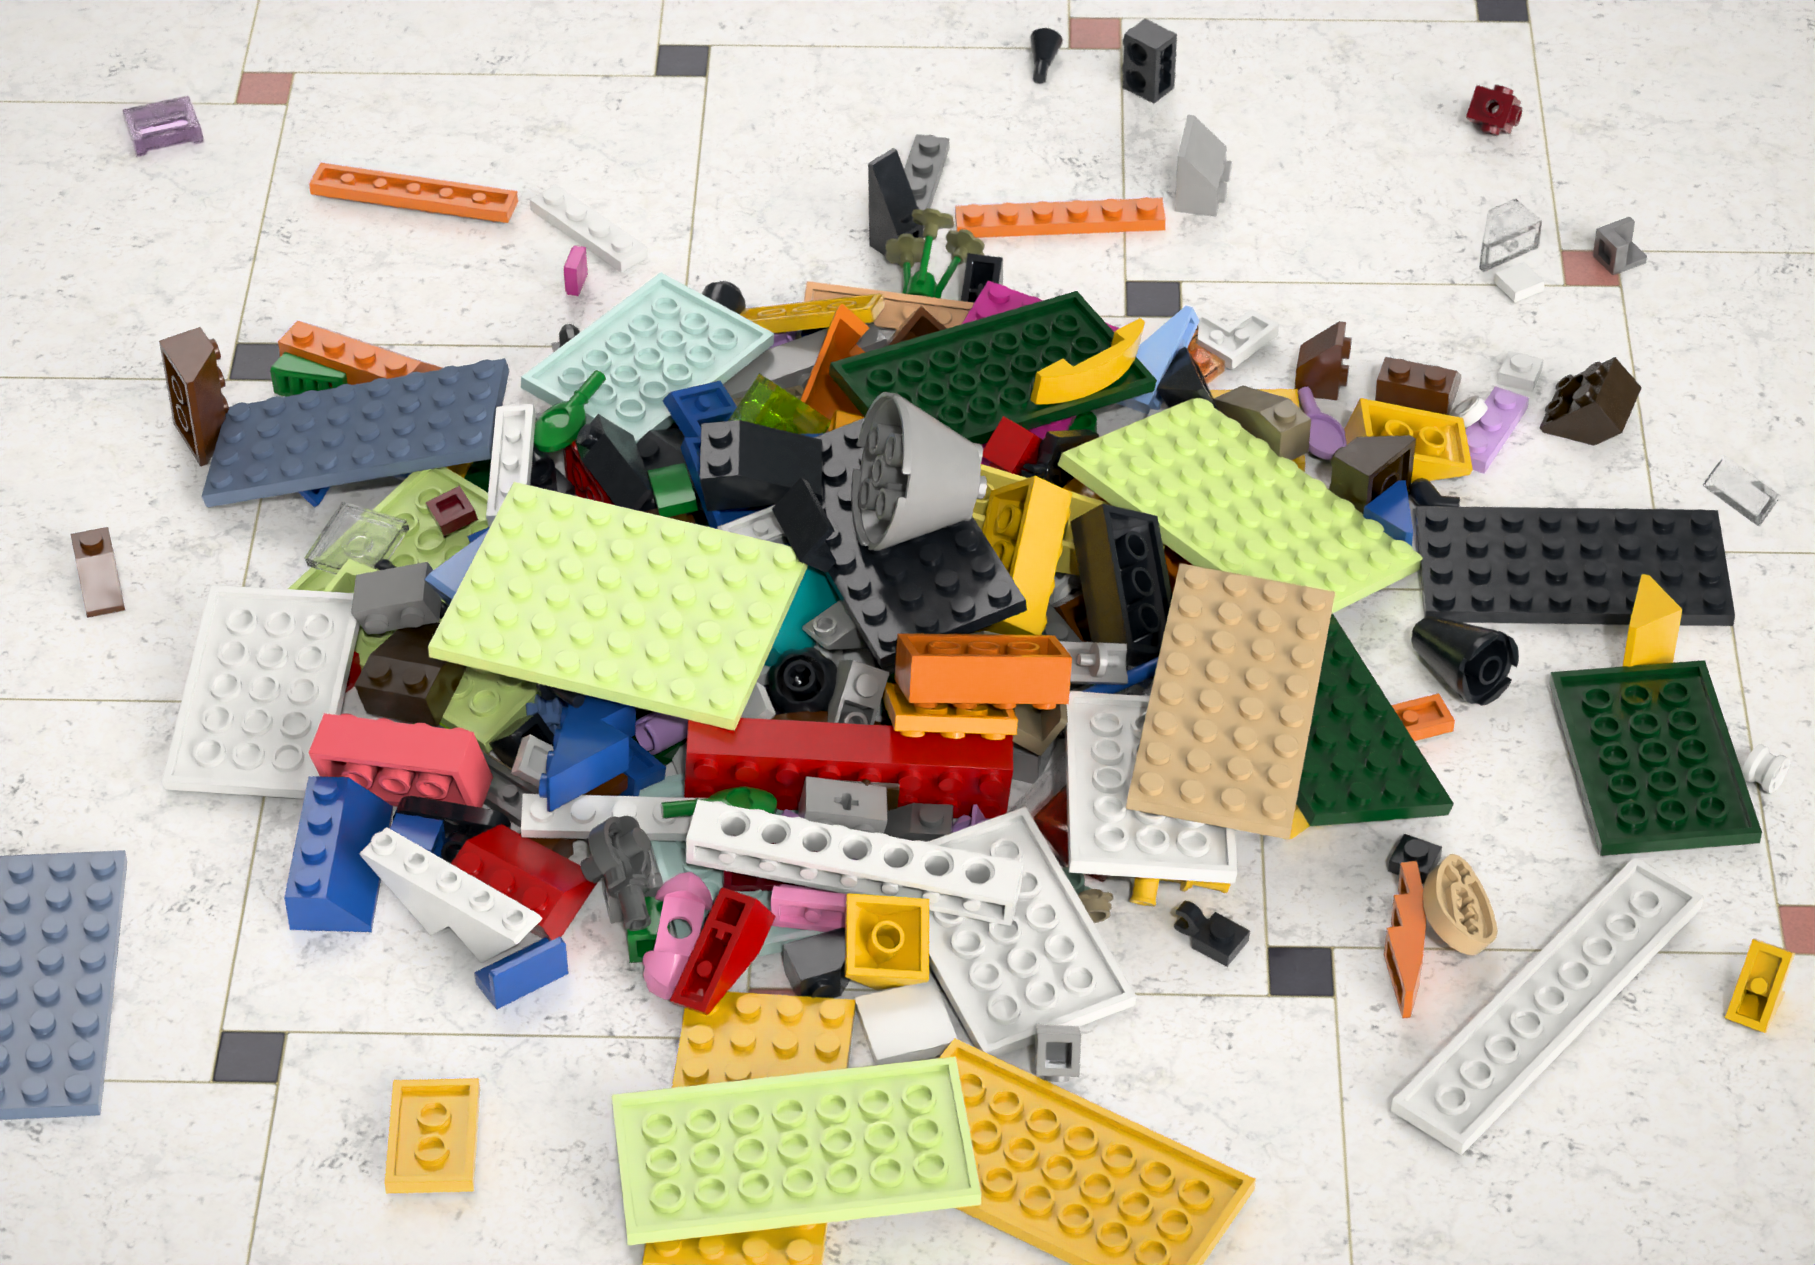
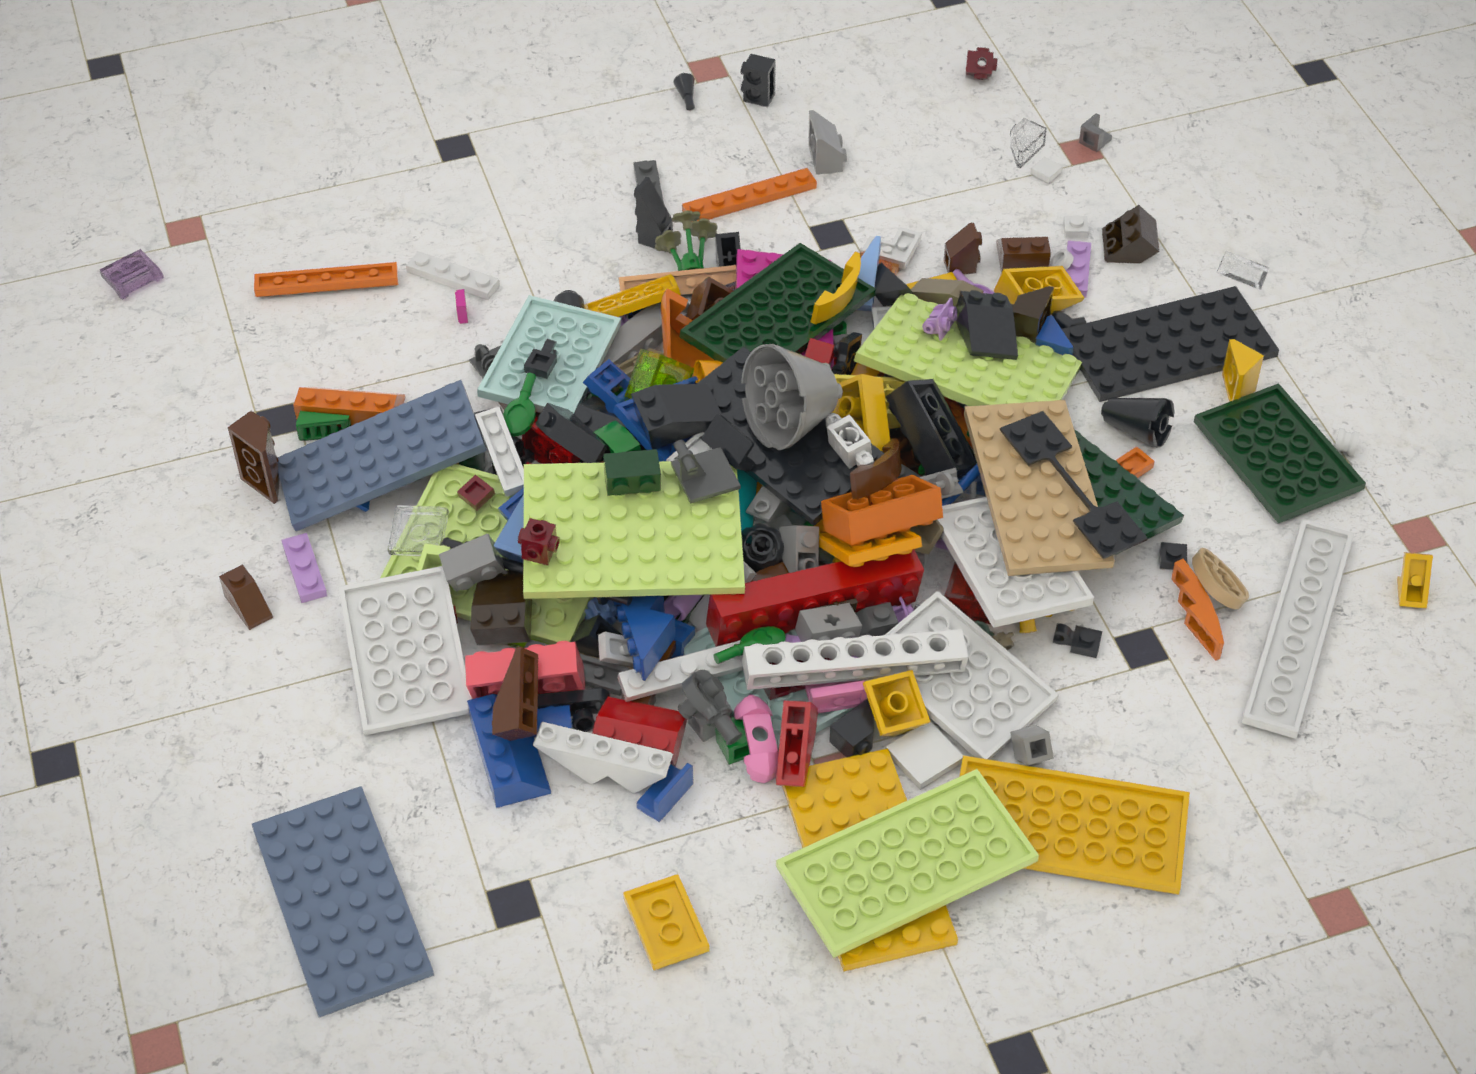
camera: 20 degrees left, 5 degrees up
(195, 556) = (304, 568): none -> lavender plate
(363, 783) = (518, 698): none -> reddish brown slope
(472, 582) = (538, 541): none -> dark red brick
(626, 361) = (542, 362): none -> black plate
(647, 526) = (632, 472): none -> dark green brick
(746, 554) = (703, 473): none -> dark grey plate
(975, 580) = (846, 428): none -> white piece
(1001, 616) = (880, 474): none -> reddish brown slope
(1223, 443) = (941, 319): none -> lavender hinge
(1289, 466) = (987, 324): none -> black slope
(1294, 779) = (1106, 527): none -> black hinge

